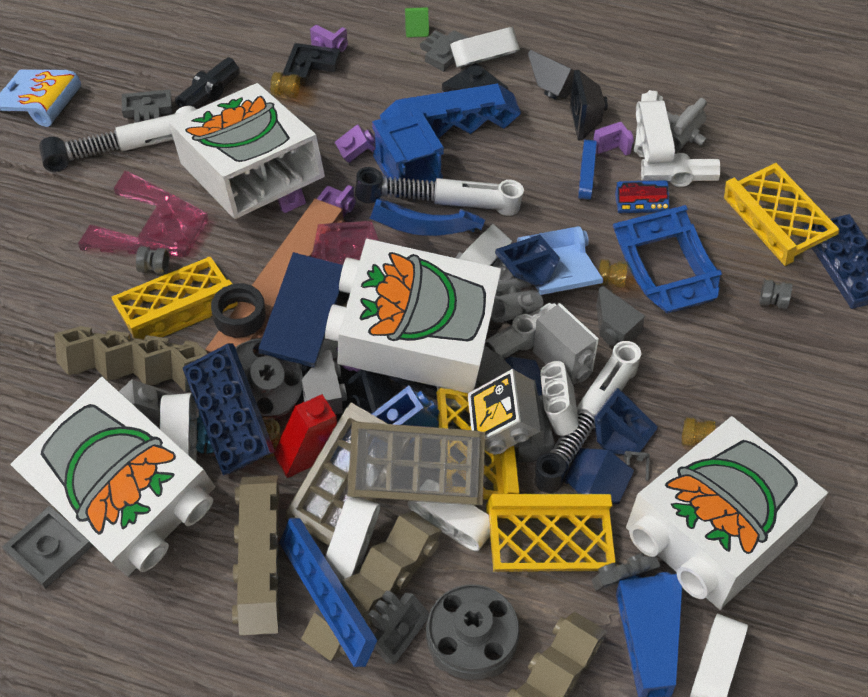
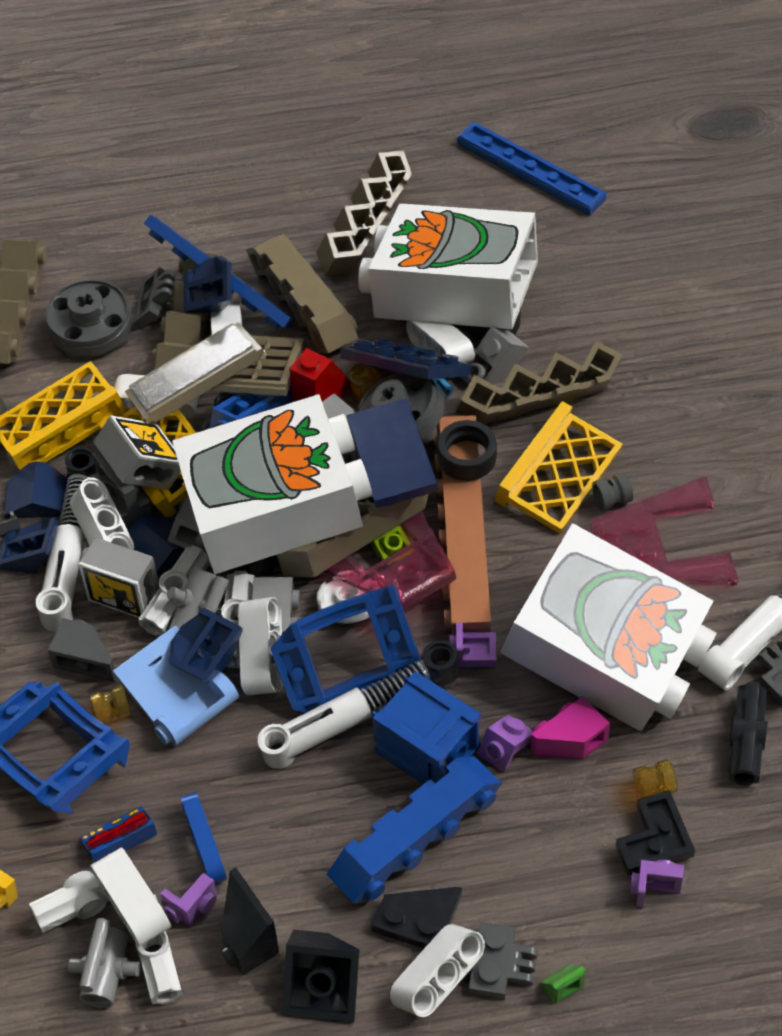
camera: 155 degrees right, 0 degrees up
(120, 620) = (360, 221): none -> dark tan brick
(323, 125) = (571, 733): none -> dark pink slope
(347, 557) = (208, 286): none -> dark blue slope

